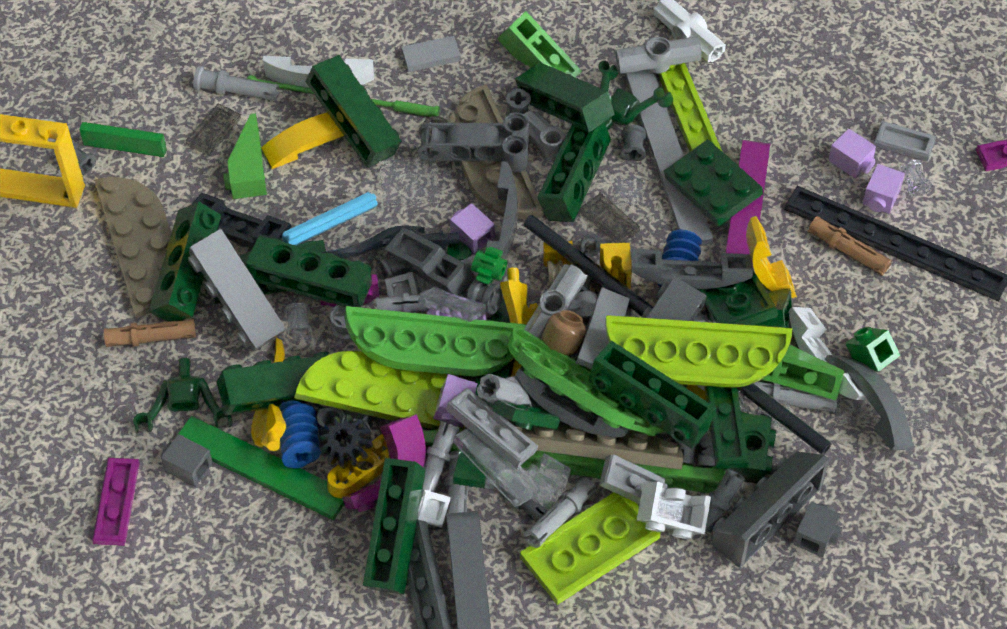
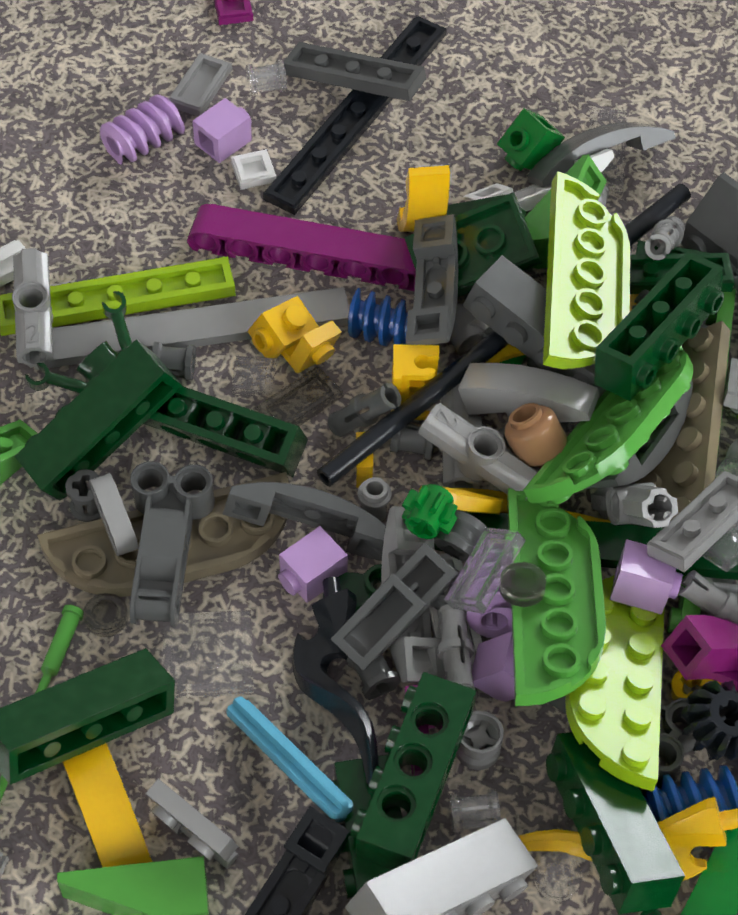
camera: 90 degrees left, 0 degrees up
(285, 173) = (184, 818): none -> light grey plate
(434, 317) = (522, 584): none -> clear smoke tile
(495, 109) = (113, 514): none -> light grey beam
(523, 256) = (374, 496): none -> light grey pin
(526, 416) = (681, 479): dark green plate -> none
(544, 136) = (156, 445): light grey piece -> none
(553, 270) = (396, 466): dark tan bush -> none
(651, 215) = (313, 347): none -> yellow bracket
(663, 198) = (281, 327): none -> yellow bracket
(713, 182) = (265, 267): dark green plate -> none
(771, 429) = (669, 241): none -> light grey pin
(823, 179) = (253, 169): none -> white tile
(843, 107) = (140, 127): none -> lavender piece
(854, 248) = (354, 160): medium nougat pin -> none
(883, 189) = (282, 107): lavender brick -> none
(926, 229) = (355, 71): none -> dark grey plate

